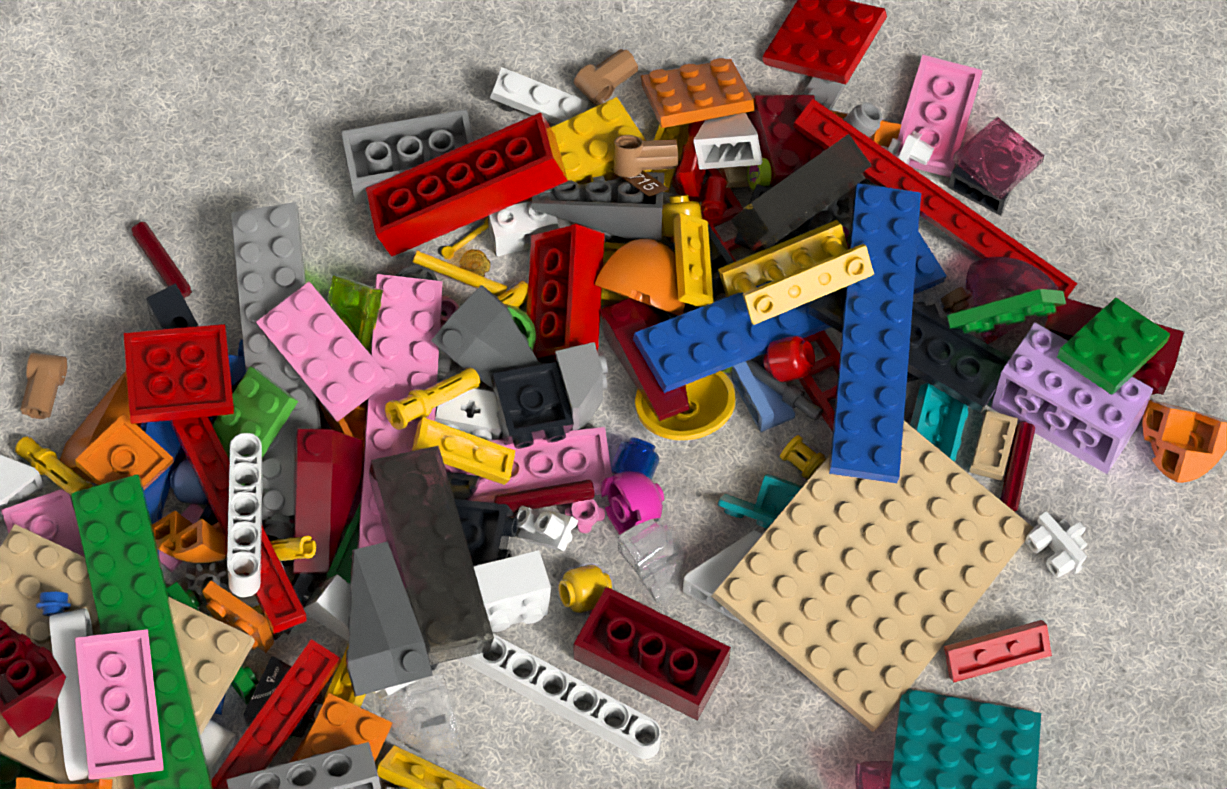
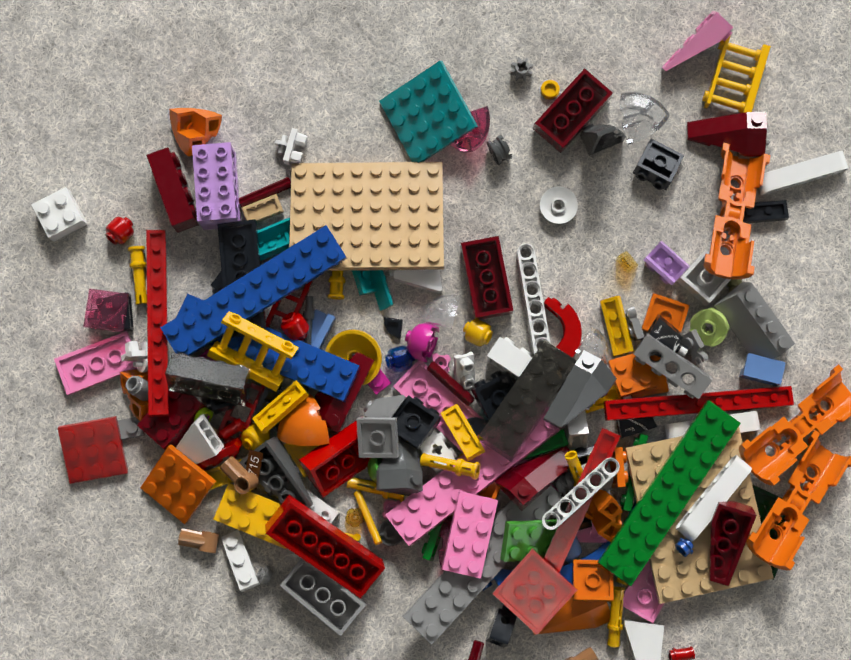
camera: 130 degrees left, 20 degrees up
(118, 704) = (709, 470): bright pink plate -> none
(356, 306) = (431, 542): clear neon green wing -> none
(488, 719) = (571, 325): none -> red arch
(496, 115) = (264, 575): none -> light grey plate
(548, 333) = (377, 437): none -> light grey plate
(625, 420) = (379, 383): none -> dark pink plate
(687, 493) = (393, 326): none -> black tile
(956, 300) = (197, 280): medium nougat plate -> none
(997, 651) = (364, 137): plate -> none
(1000, 279) = (180, 255): clear pink brick -> none
(1008, 311) = (199, 238): green plate -> none
(1036, 242) = (138, 265): none -> yellow pin
(1102, 253) = (119, 230): none -> red head
(1113, 346) = (183, 176): green plate -> none
(1181, 198) = (59, 214): none -> white brick

